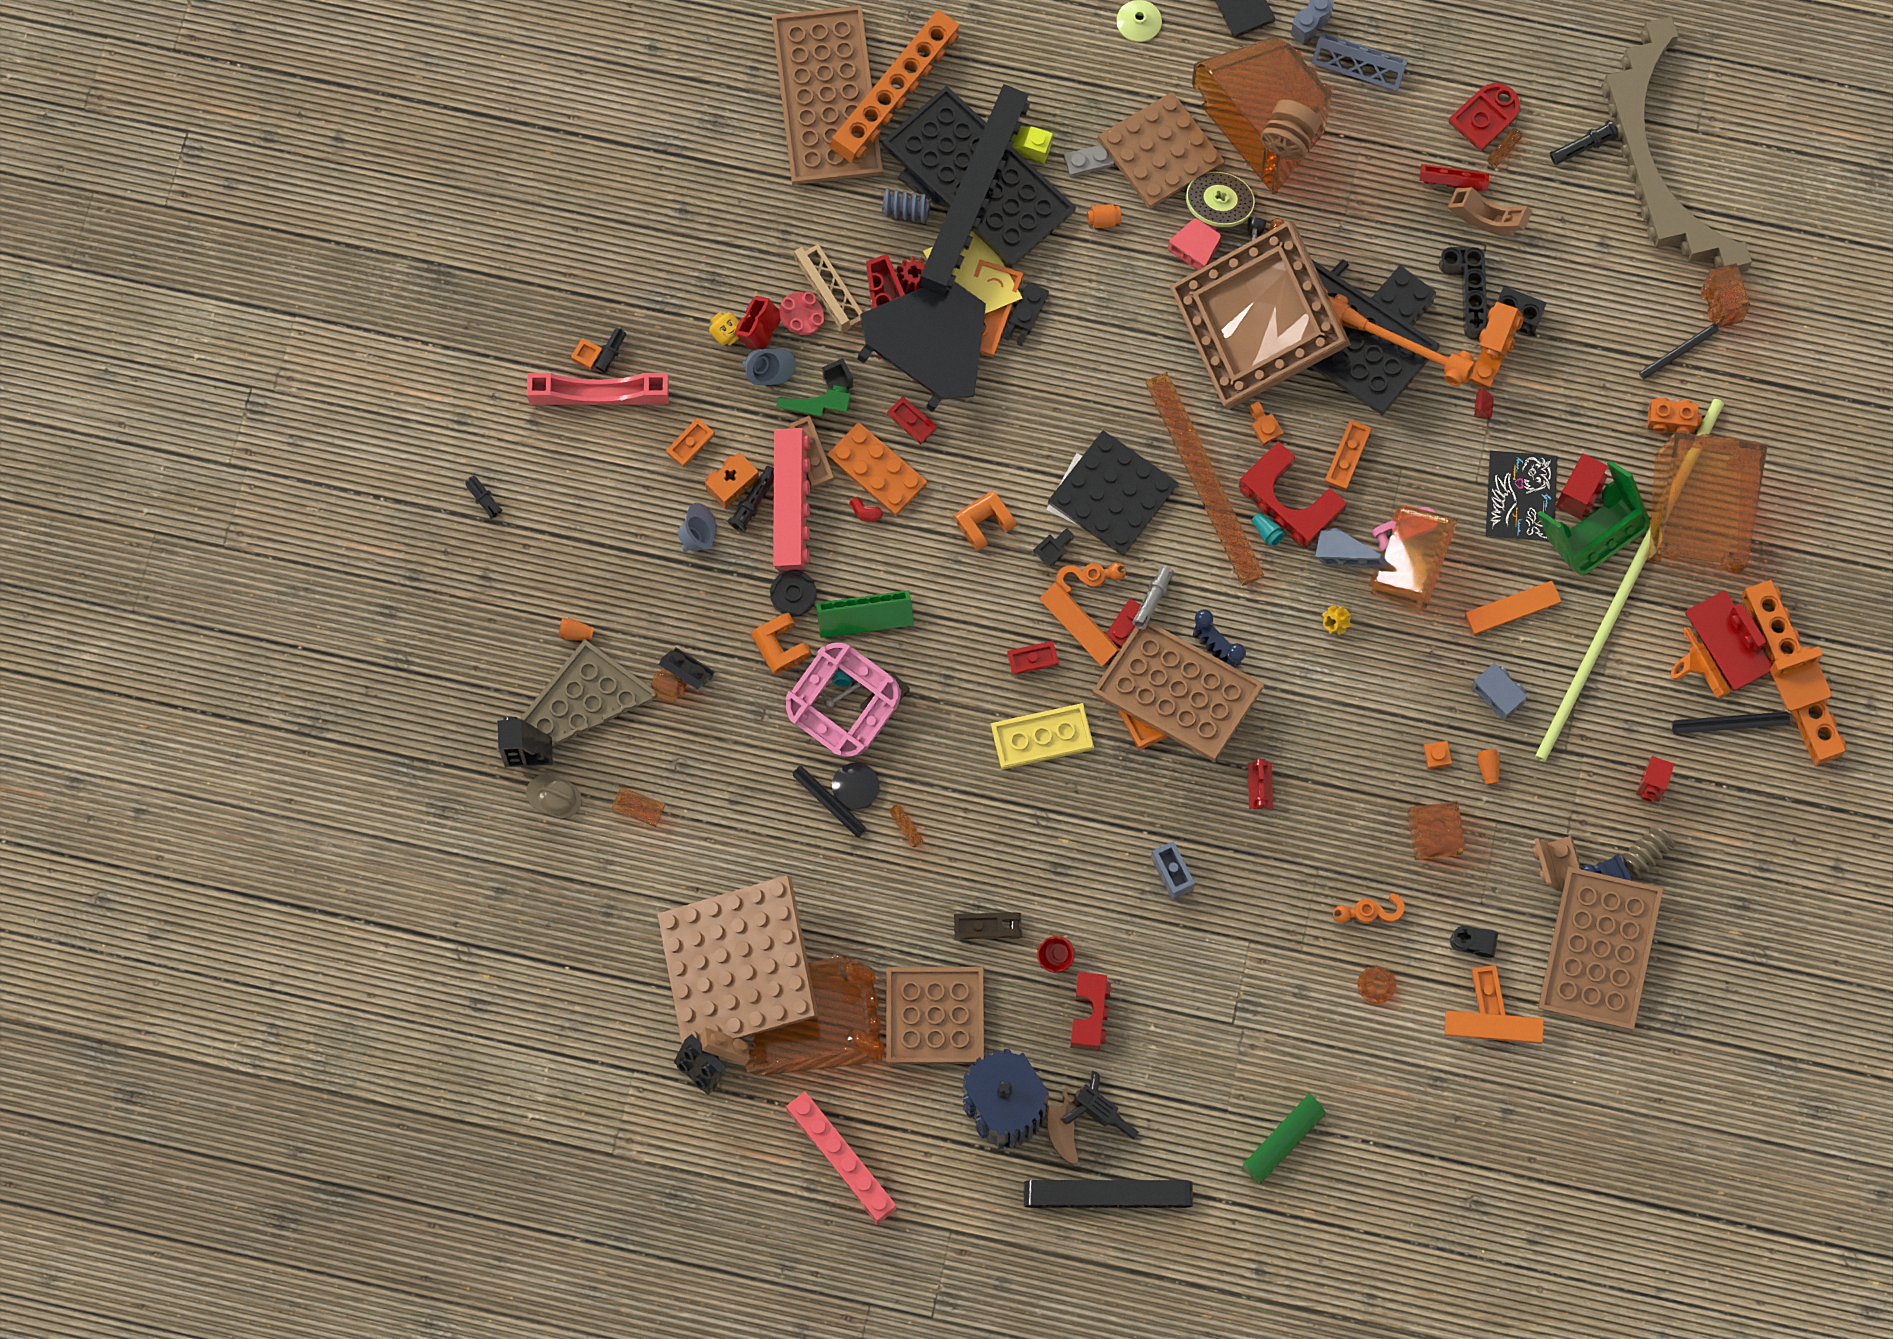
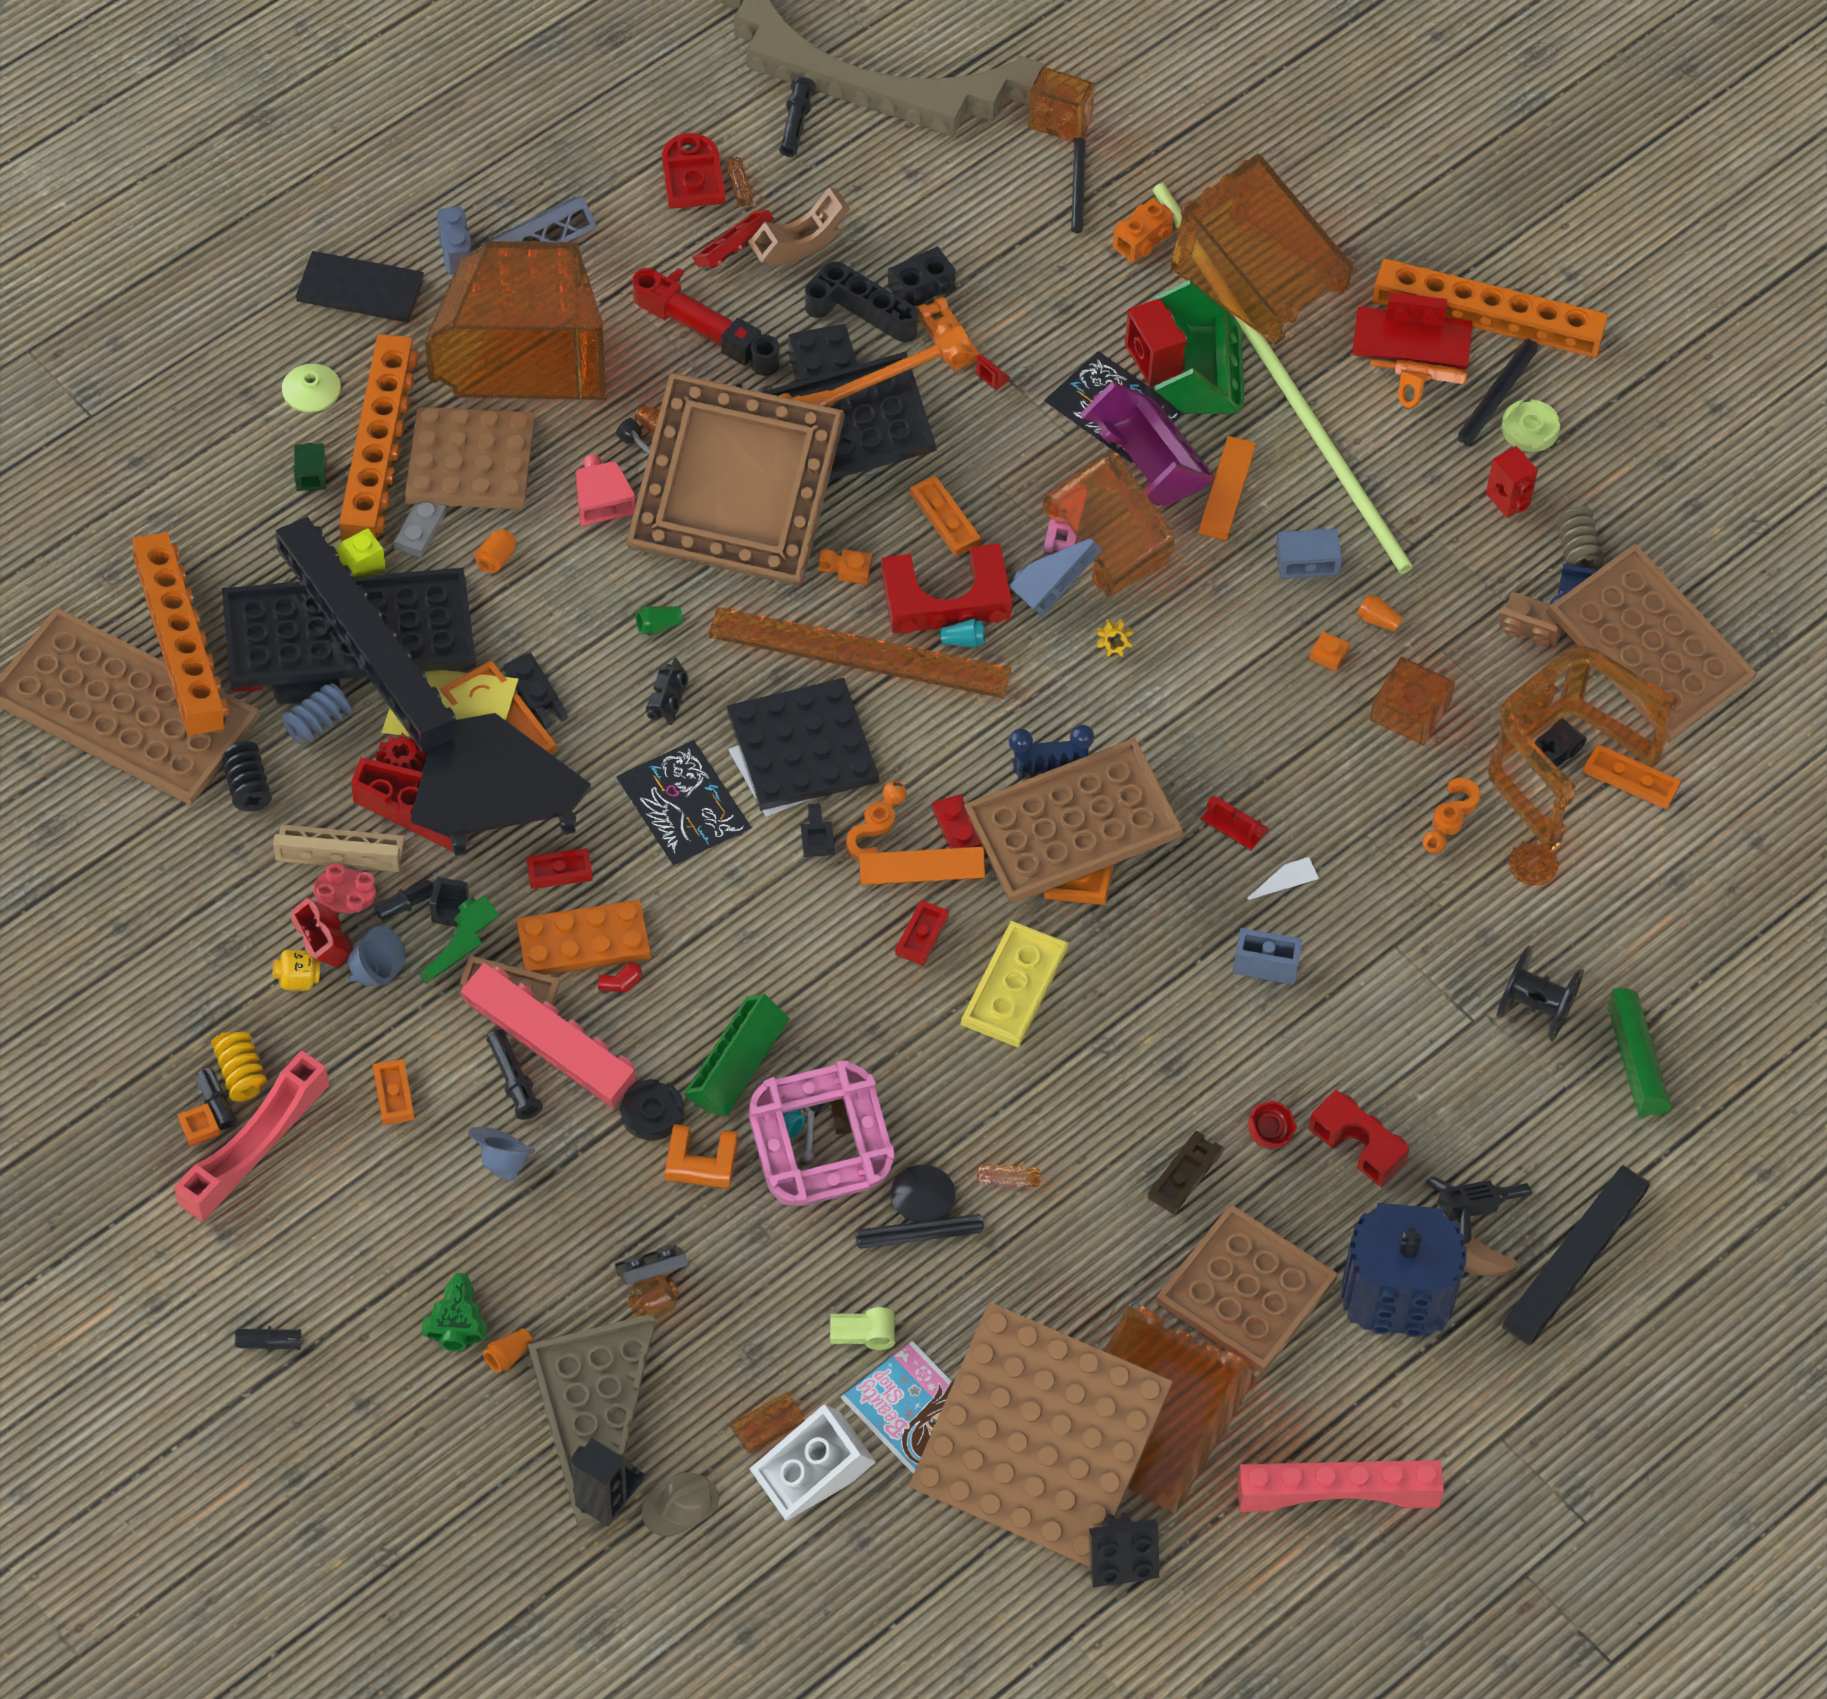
camera: 55 degrees left, 15 degrees down
(575, 586) = (456, 1317): none -> green rock
(631, 850) = (812, 1462): none -> white slope
(639, 345) = (239, 1065): none -> yellow piece
(712, 870) = (902, 1402): none -> sticker
(724, 1046) = (1125, 1509): medium nougat plate -> none
(728, 491) = (477, 1095): orange brick -> none
(741, 820) = (873, 1328): none -> yellowish green piece
(820, 350) = (403, 900): none -> black axle
(830, 199) = (246, 776): none -> black piece
(977, 512) = (716, 887): orange connector -> none
(1018, 455) = (683, 802): none -> black sticker
(1056, 120) = (378, 436): none -> orange brick
(1077, 65) = (310, 467): none -> dark green brick
(1093, 387) = (672, 682): none -> black hinge
(1132, 344) = (657, 618): none -> green cone
(1156, 590) = (945, 771): light grey pin -> none
(1237, 198) = (573, 441): piece -> none
(1248, 843) = (1287, 876): none -> white sticker
(1273, 1065) = (1540, 993): none -> black piece
(1290, 129) = (588, 288): medium nougat wheel -> none
(1377, 228) = (737, 338): none -> red piece
(1481, 909) = (1535, 702): none -> clear orange windscreen
(1493, 1027) = (1664, 786): orange tile -> none
(1500, 330) = (931, 288): orange brick -> none
(1507, 543) = (1151, 442): none -> magenta windscreen
(1721, 761) = (1530, 425): none -> yellowish green tile
(1800, 678) = (1508, 297): orange bracket -> none

